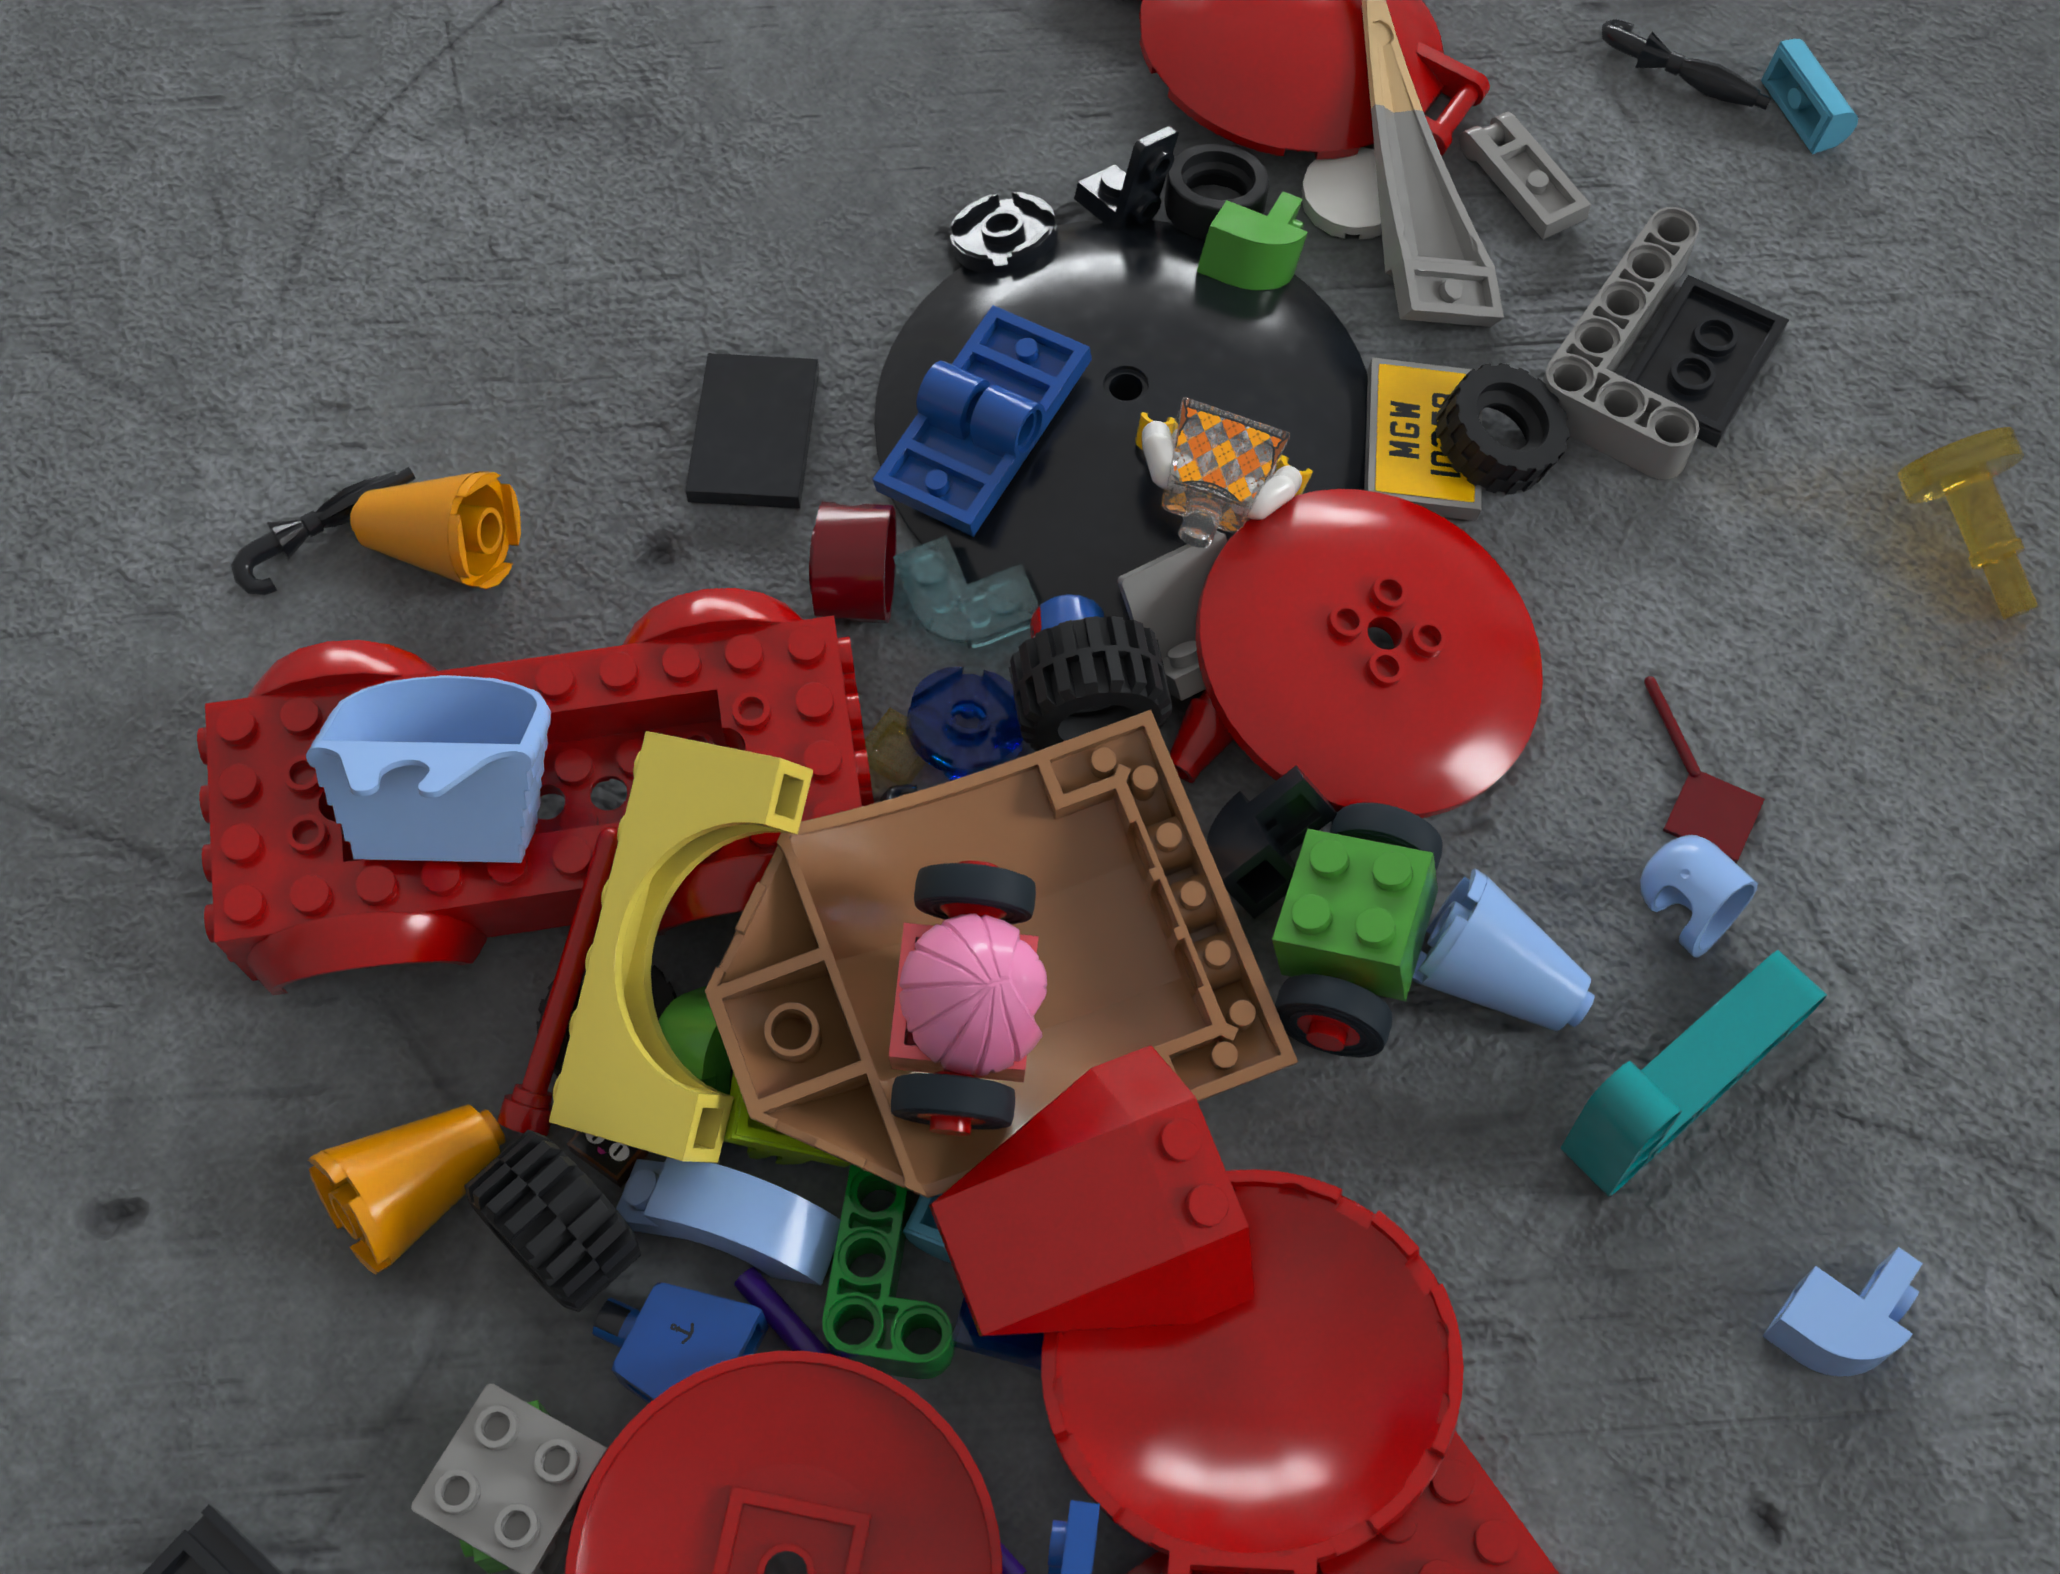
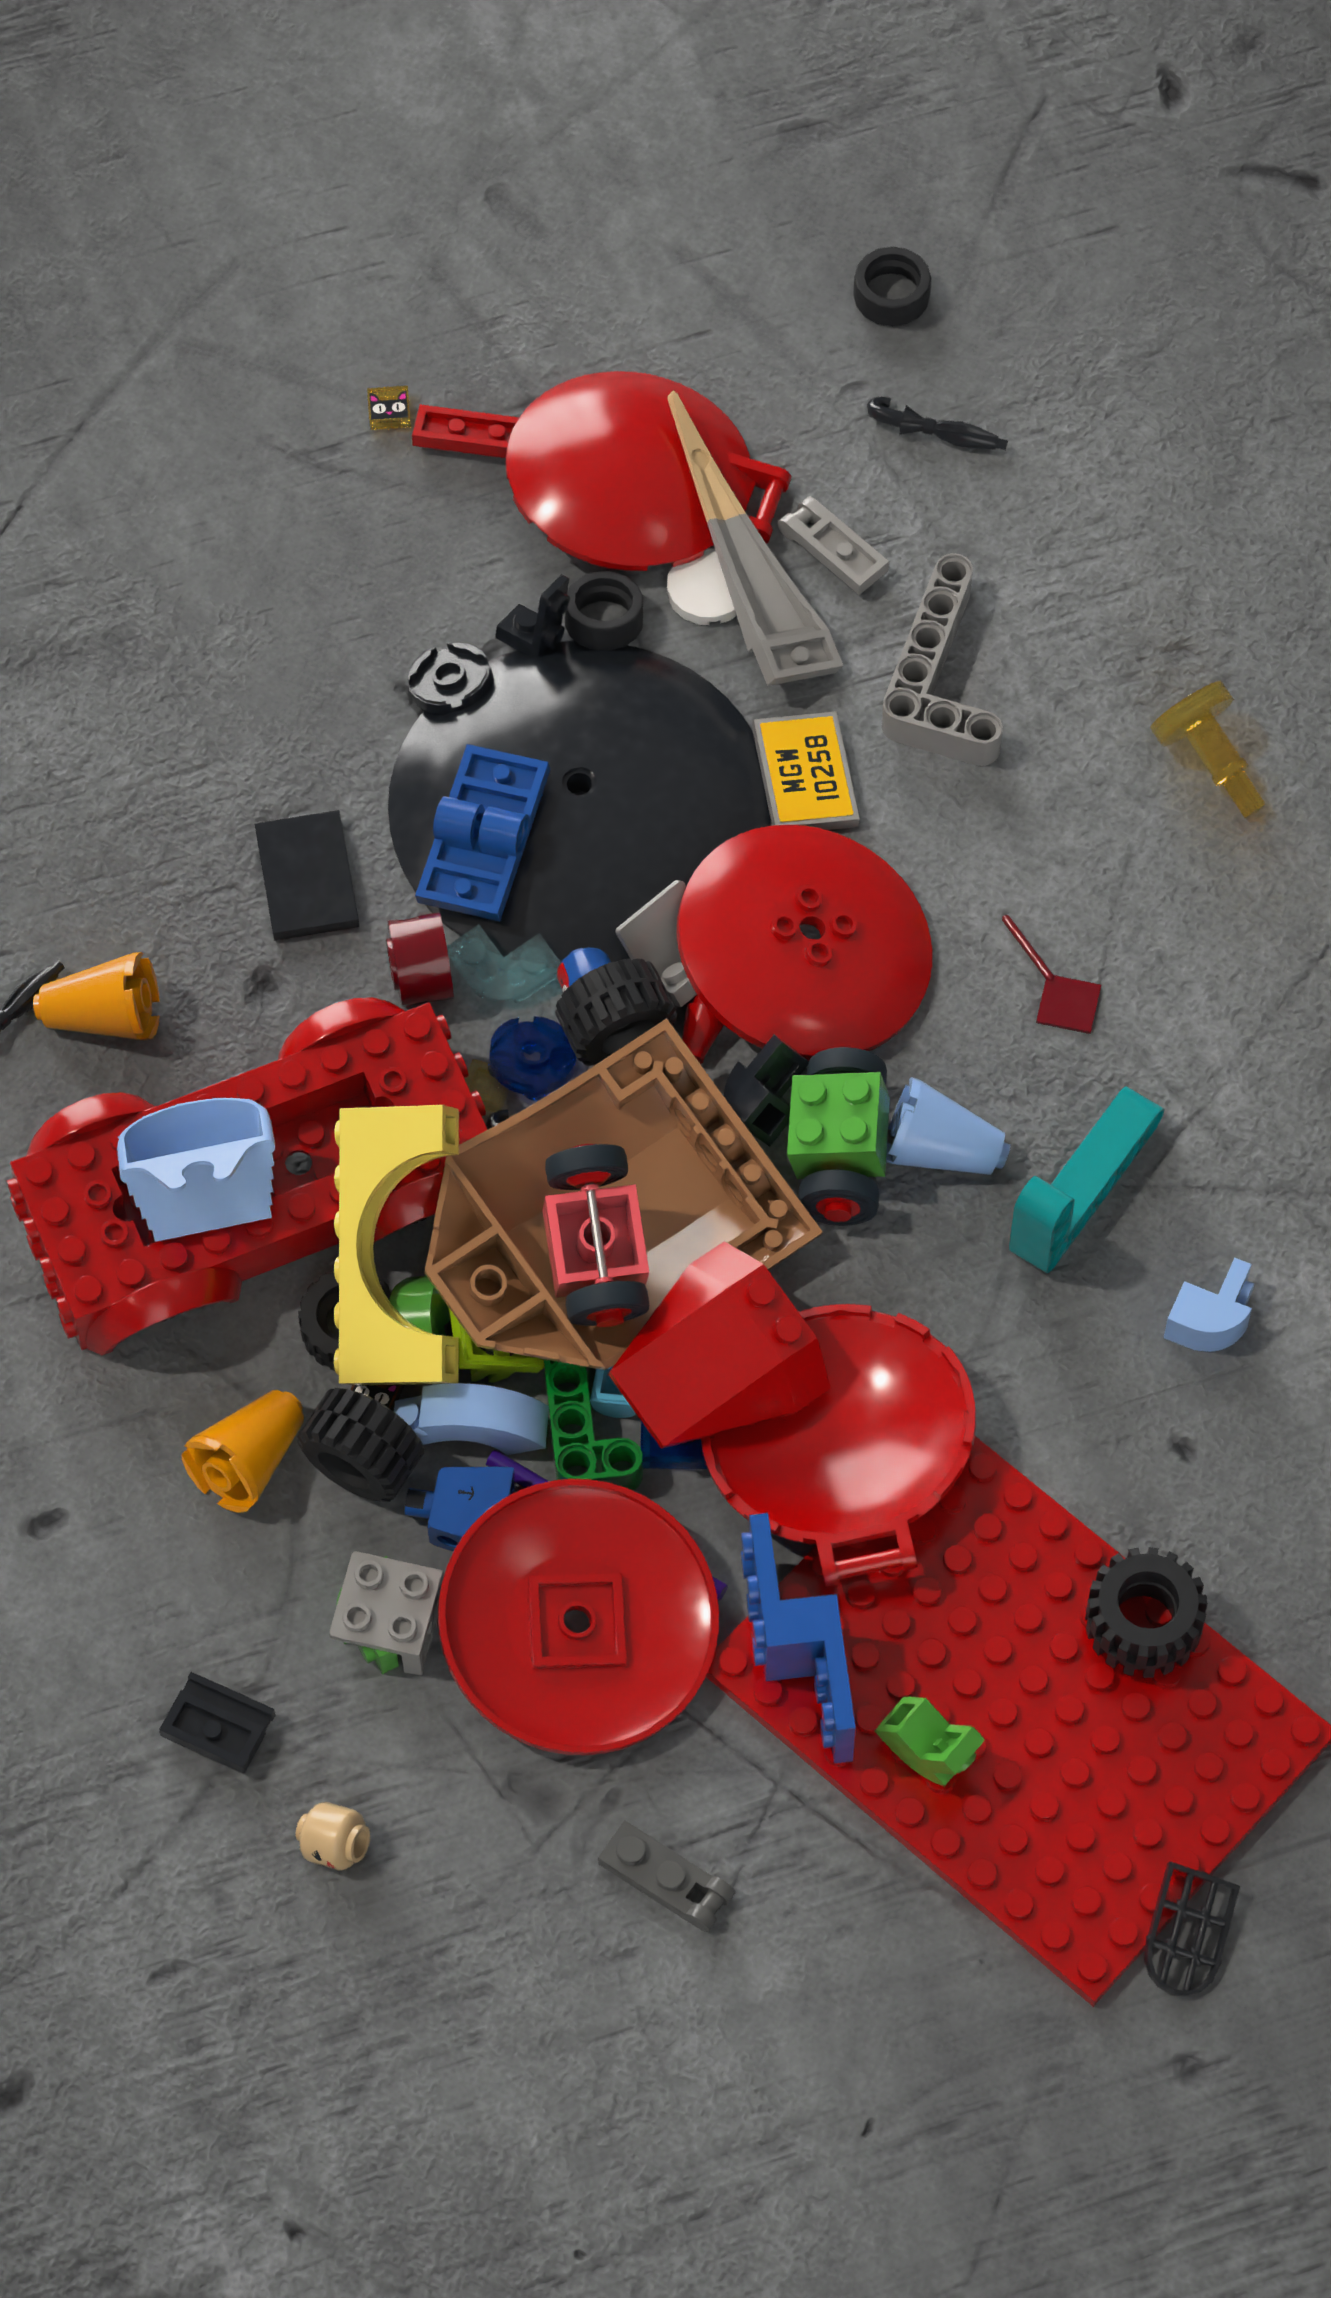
camera: 15 degrees left, 0 degrees up
(530, 1102) = (313, 1380): red piece -> none
(973, 994) = (606, 1229): bright pink hair -> none
(1217, 469) = (665, 835): torso -> none
(1254, 248) = (646, 654): bright green brick -> none
(1523, 401) = (846, 778): black tyre -> none
(1702, 879) = (1068, 1050): light blue helmet -> none
(1708, 354) = (998, 662): black tile -> none
(1808, 97) = (1035, 434): medium azure brick -> none

